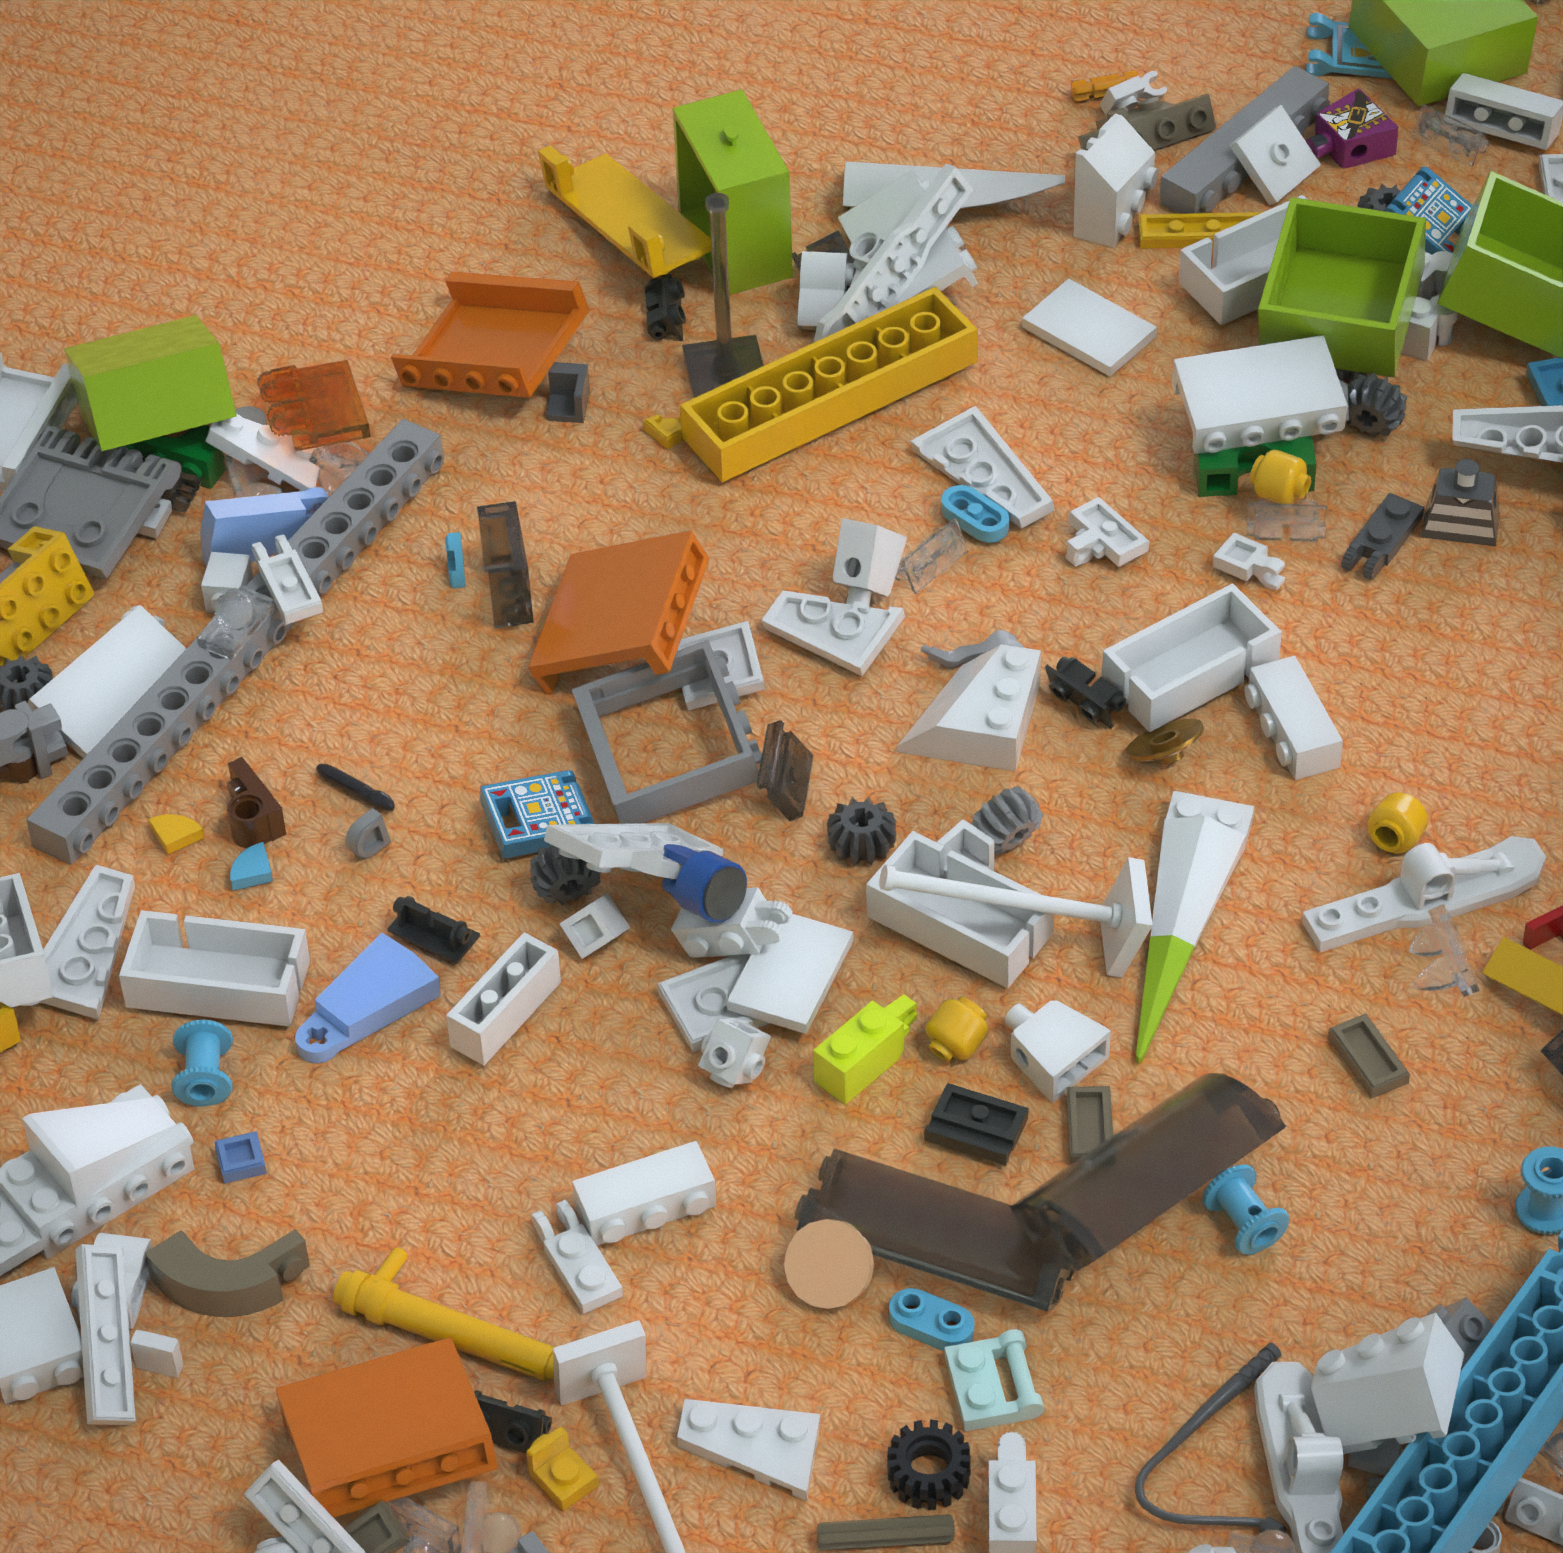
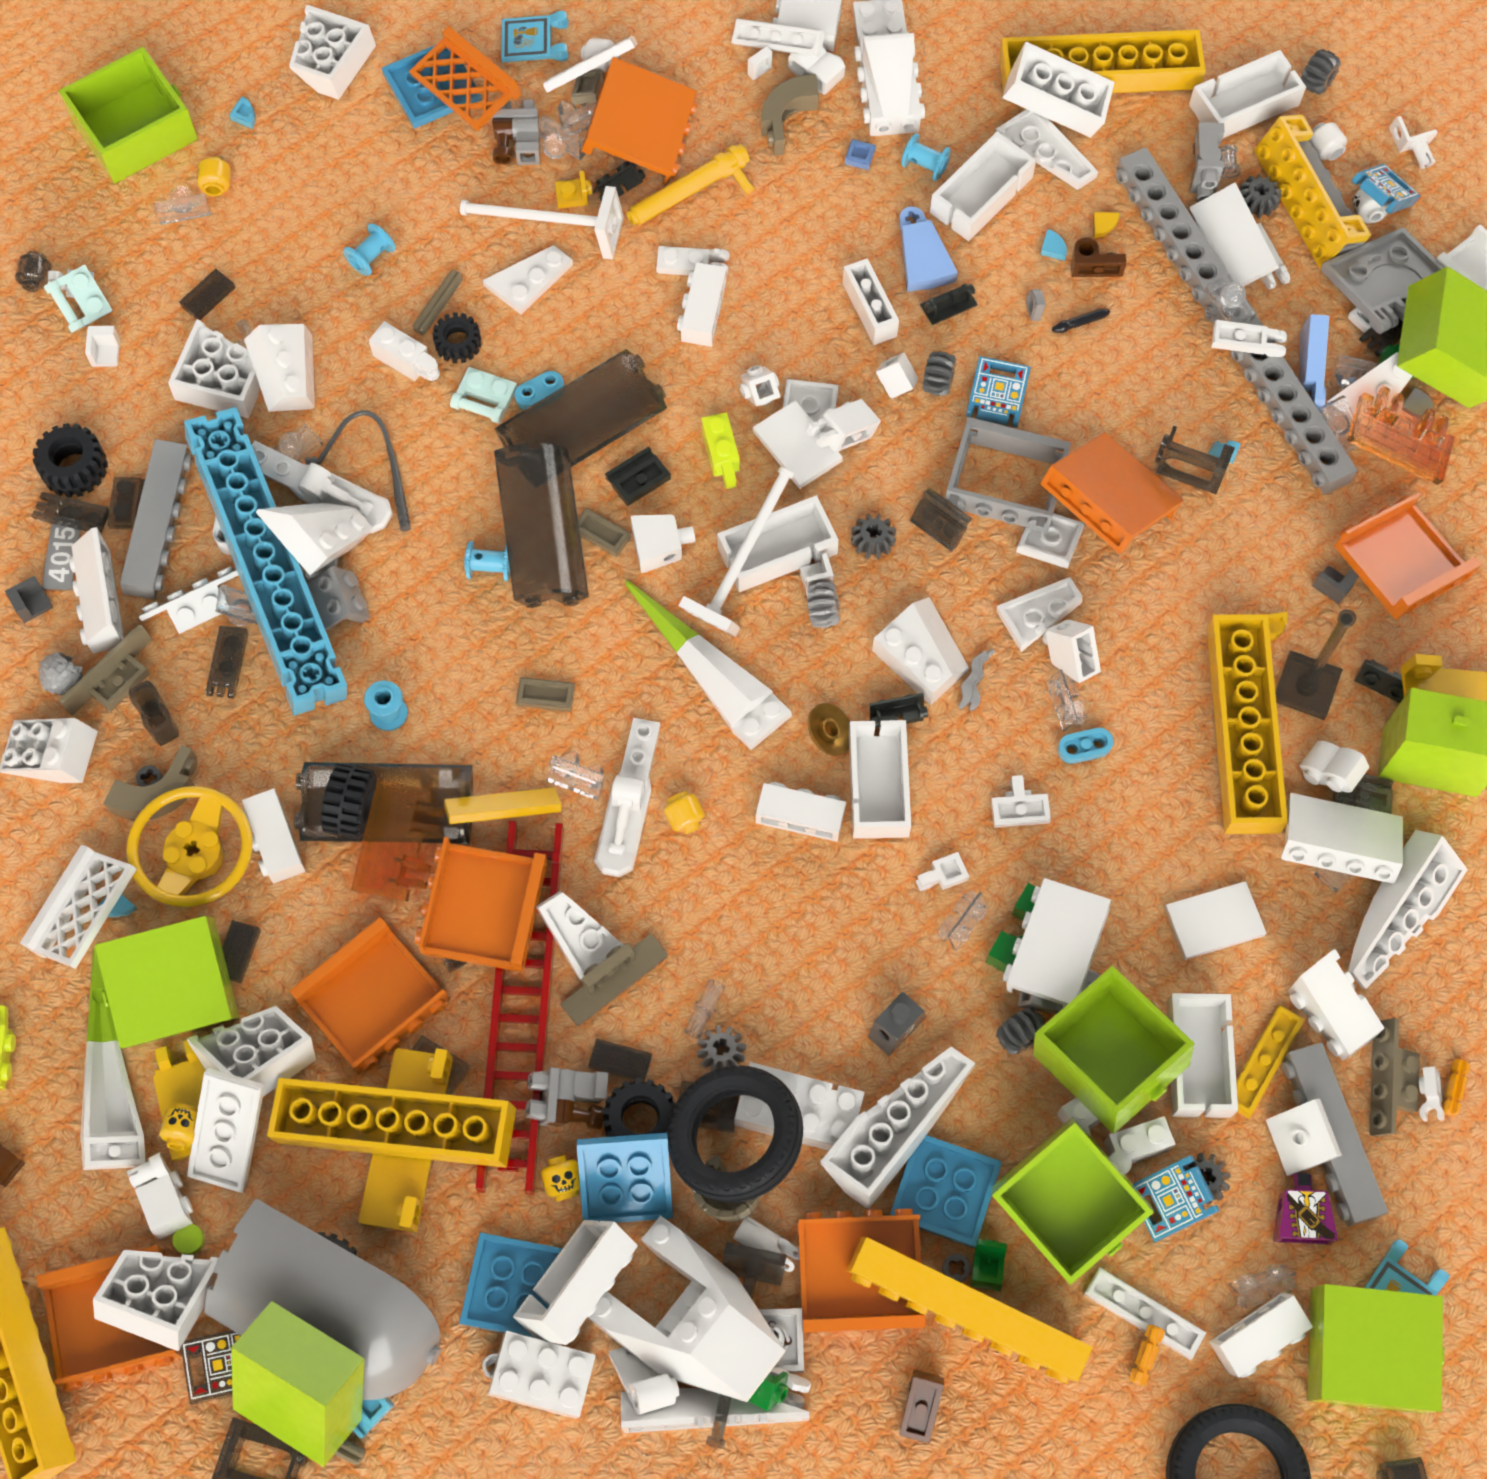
camera: 120 degrees right, 20 degrees up
(223, 574) = (1281, 320): white brick -> none
(690, 865) = (909, 399): plate -> none
(828, 1263) = (596, 352): light nougat tile -> none
(892, 262) = (1321, 803): white piece -> none
(956, 1029) = (702, 500): yellow head -> none
(978, 457) = (1135, 777): white wing -> none
(1280, 477) = (986, 920): yellow head -> none
(1383, 534) = (916, 971): dark grey hinge -> none

